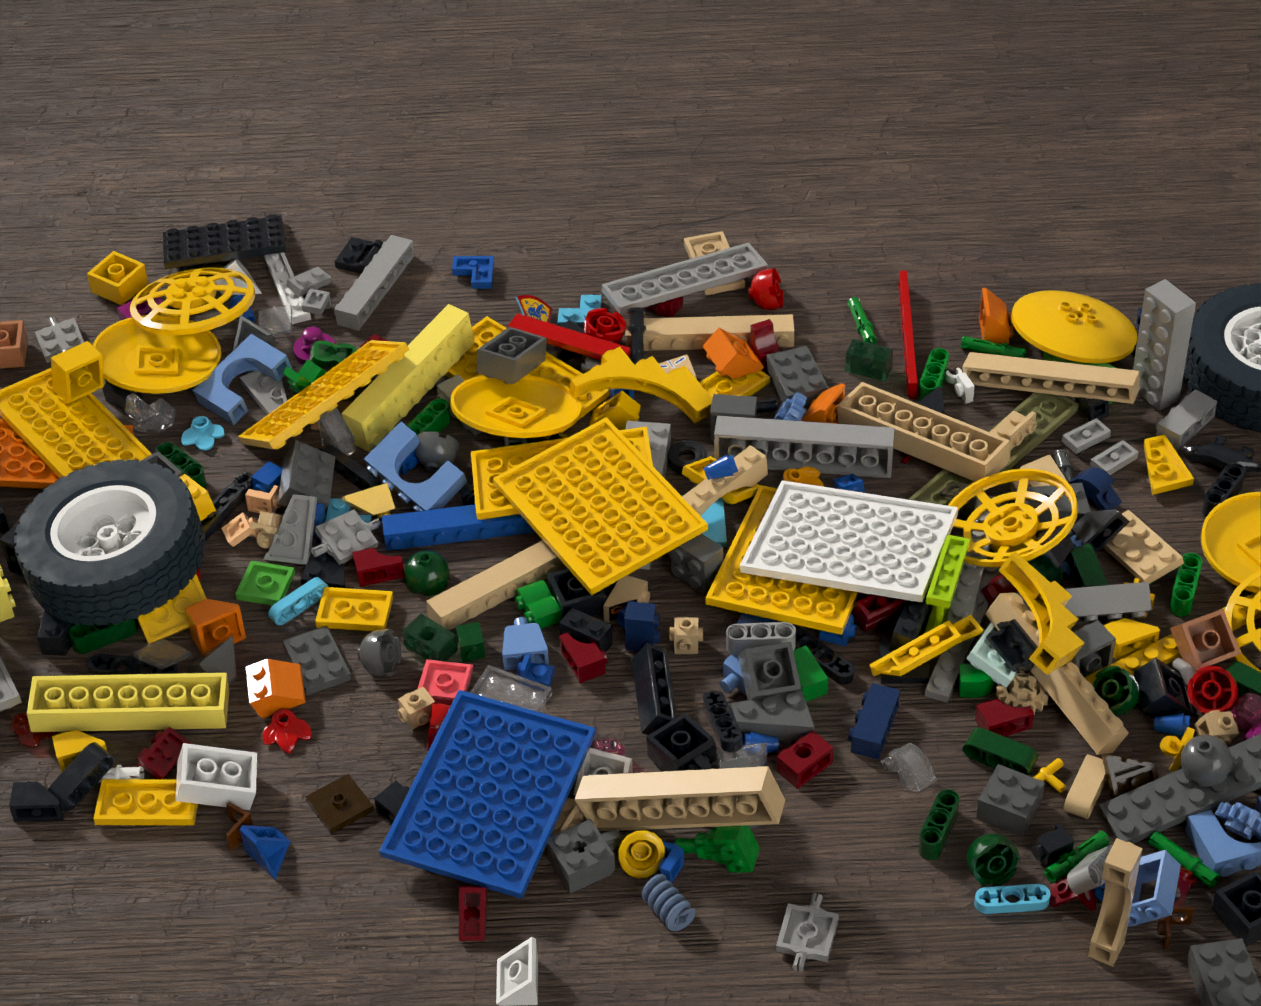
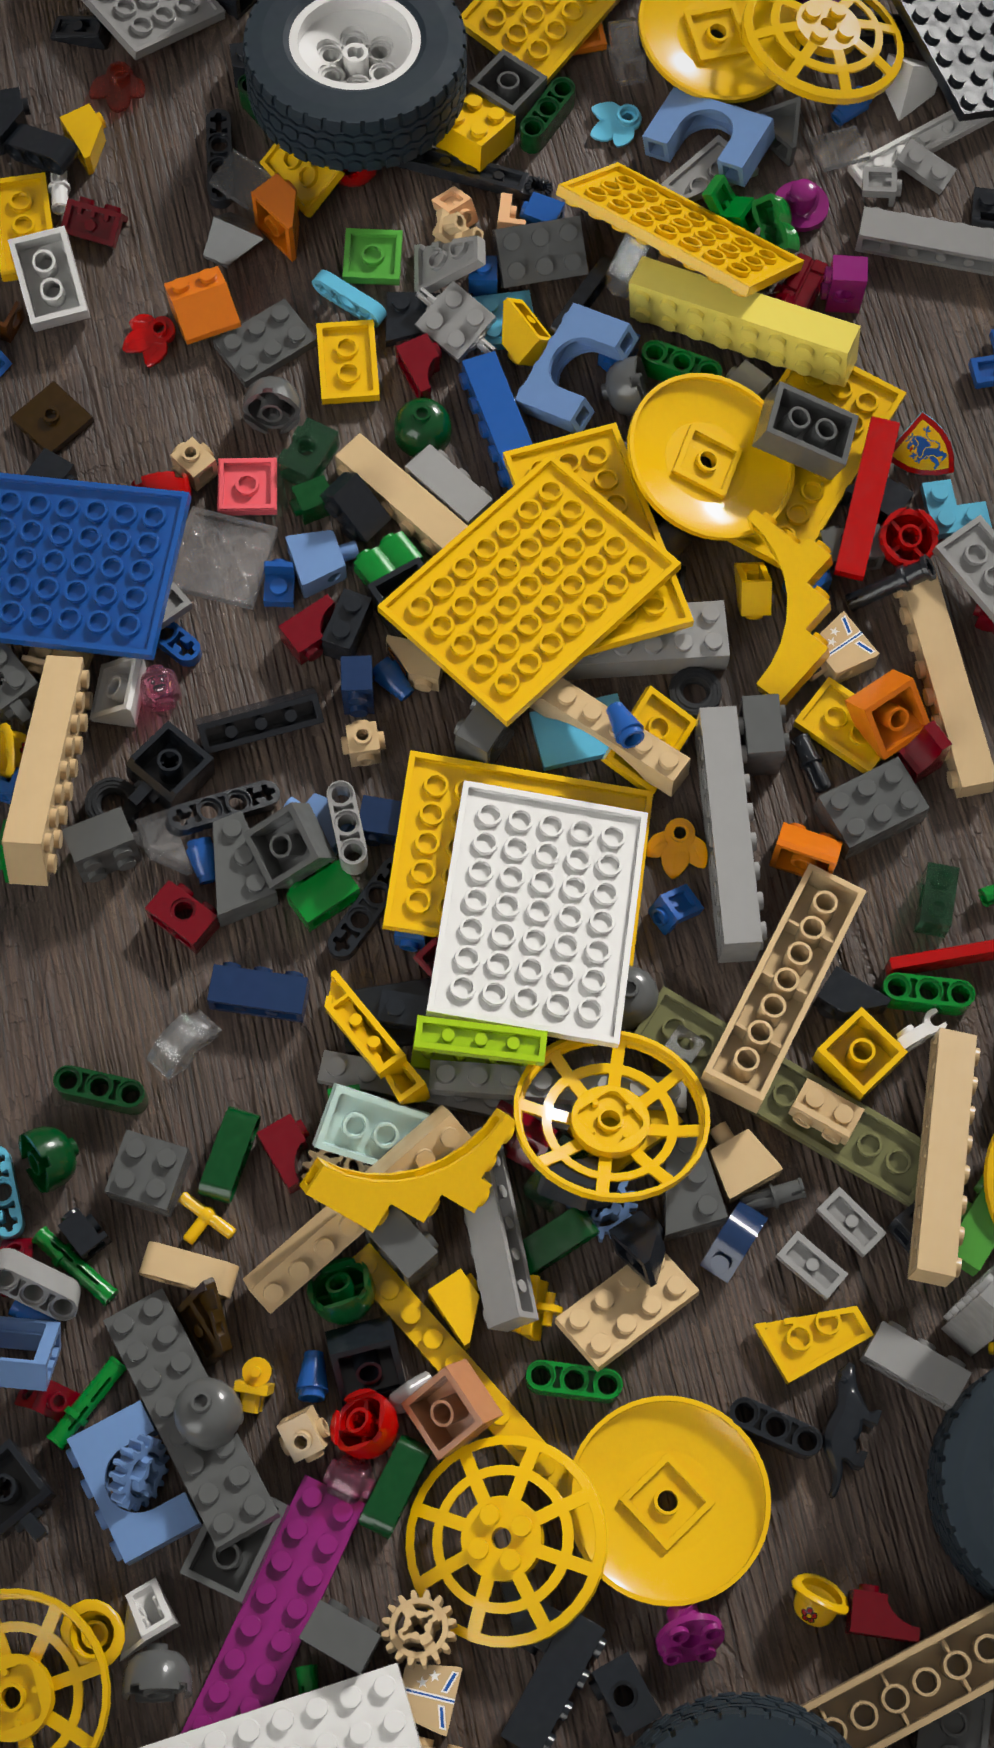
camera: 75 degrees right, 25 degrees up
(128, 702) = (150, 165): light yellow brick -> none
(394, 323) = (844, 284): none -> magenta brick
(483, 558) = (449, 484): none -> light grey brick
(490, 610) = (354, 507): none -> black brick
(792, 409) = (786, 806): medium blue gear -> none
(975, 406) = (859, 1055): none -> yellow brick
(1013, 645) = (377, 1143): black hinge -> none

